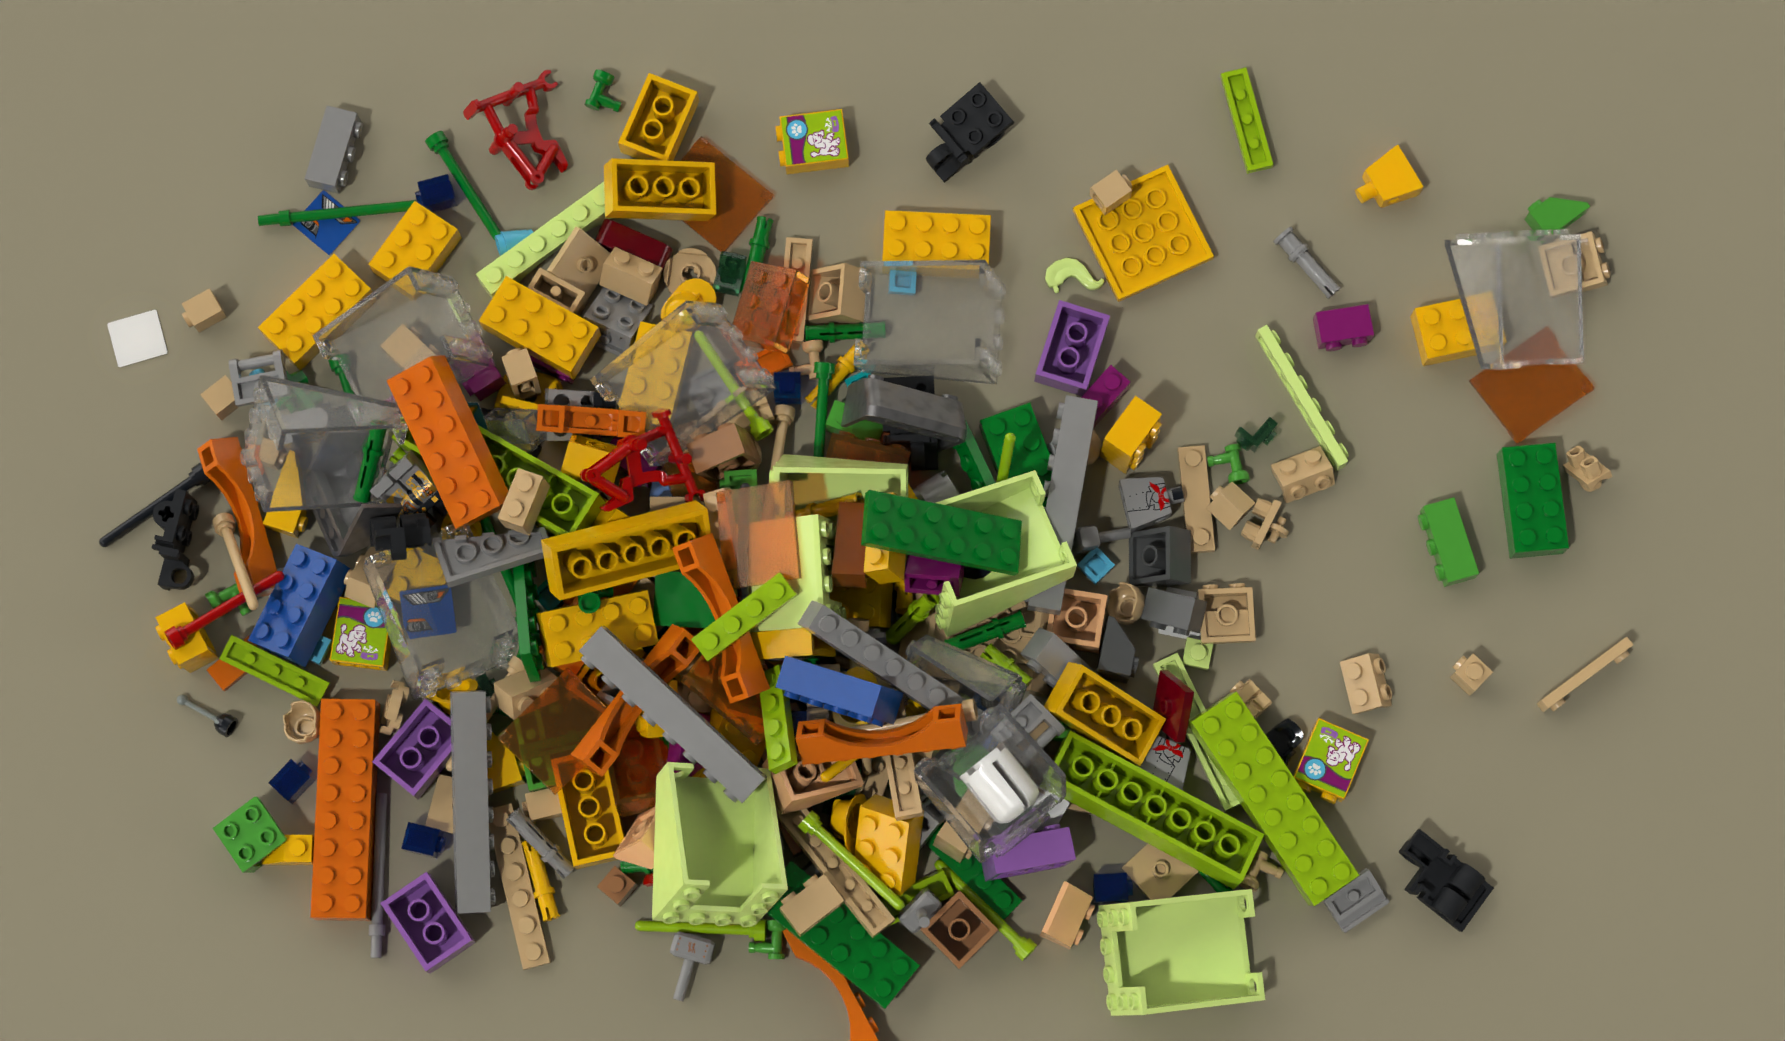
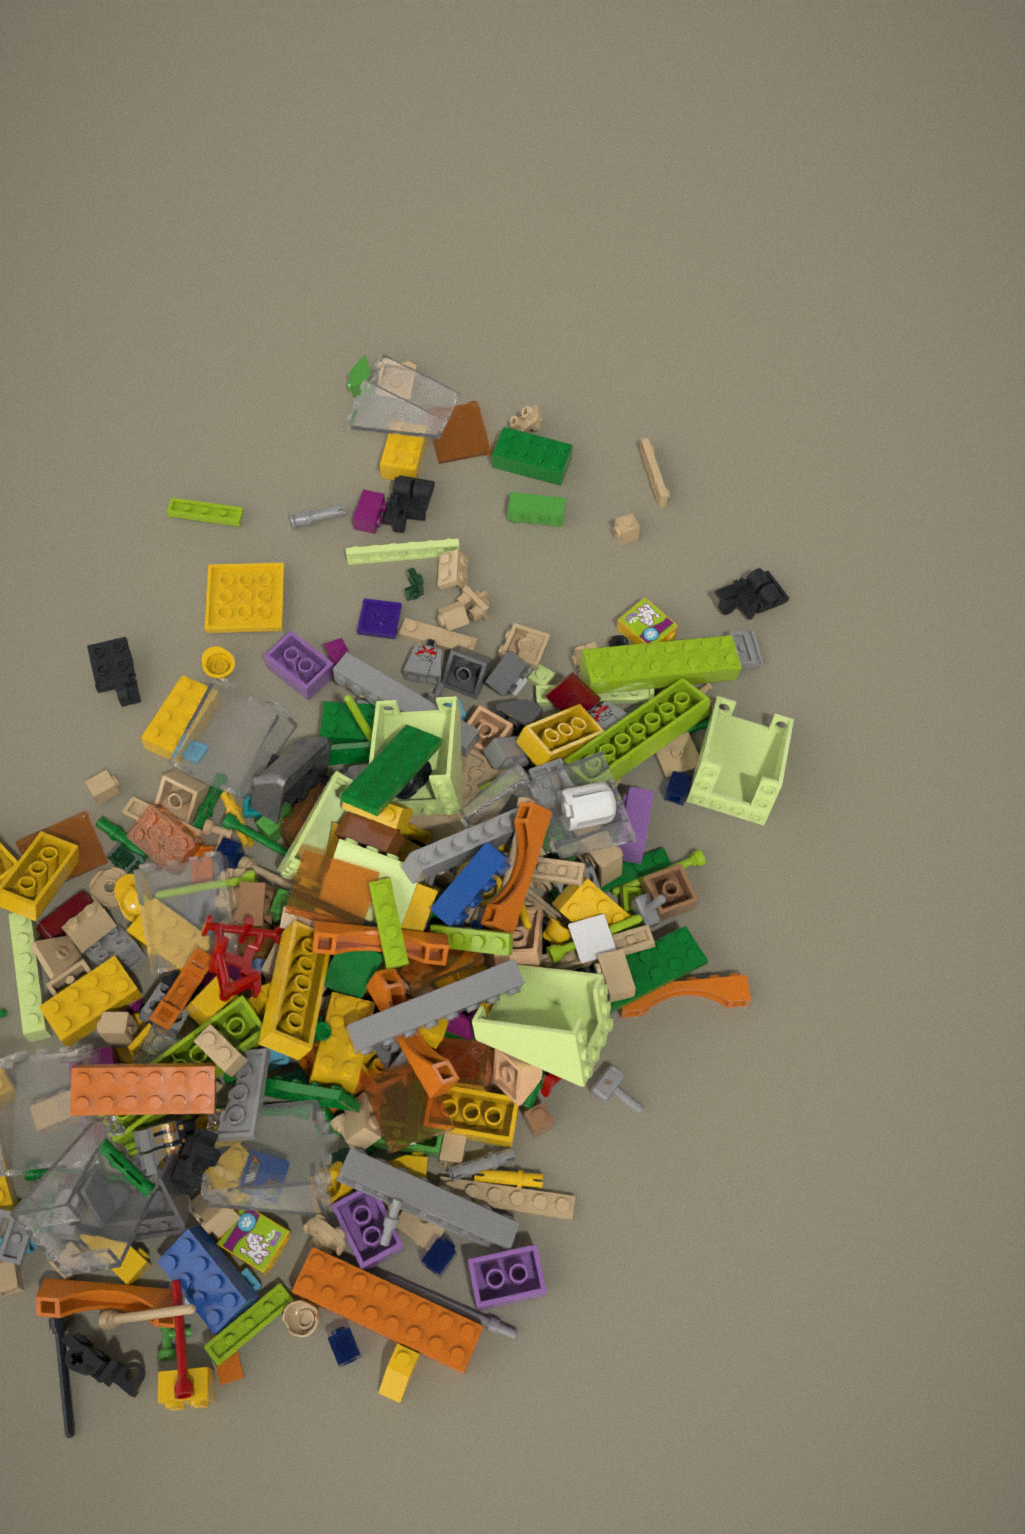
camera: 70 degrees left, 15 degrees down
(223, 723) = (270, 1387): hinge -> none
(250, 835) = (373, 1397): bright green bracket -> none
(428, 771) = (391, 1221): none -> light grey bar
(509, 239) = (11, 1005): medium azure cone -> none
(757, 931) = (612, 1036): lime piece -> none
(774, 947) = (630, 1026): bright green piece -> none
(807, 199) = (103, 787): none -> tan brick
(812, 141) = (64, 768): brick -> none
(846, 859) = (592, 937): none -> white sticker
(916, 612) = (433, 811): lime pin -> none
(928, 576) = (416, 793): magenta brick -> none
(987, 632) = (470, 779): green pin -> none
(1031, 247) = (217, 662): none -> yellow piece
(1067, 268) = (243, 650): yellowish green piece -> none
(1067, 916) = (685, 821): light nougat slope -> none
(1111, 191) = (208, 599): tan brick -> none
(1125, 603) = (488, 699): tan hair -> none
(1130, 435) = (378, 646): yellow brick -> none
(1188, 414) = (379, 618): none -> dark purple plate
(1231, 456) = (420, 605): bright green piece -> none
(1366, 683) = (605, 590): tan bracket -> none
(1383, 370) = (409, 500): none -> black plate
(1389, 180) = (289, 450): yellow torso -> none

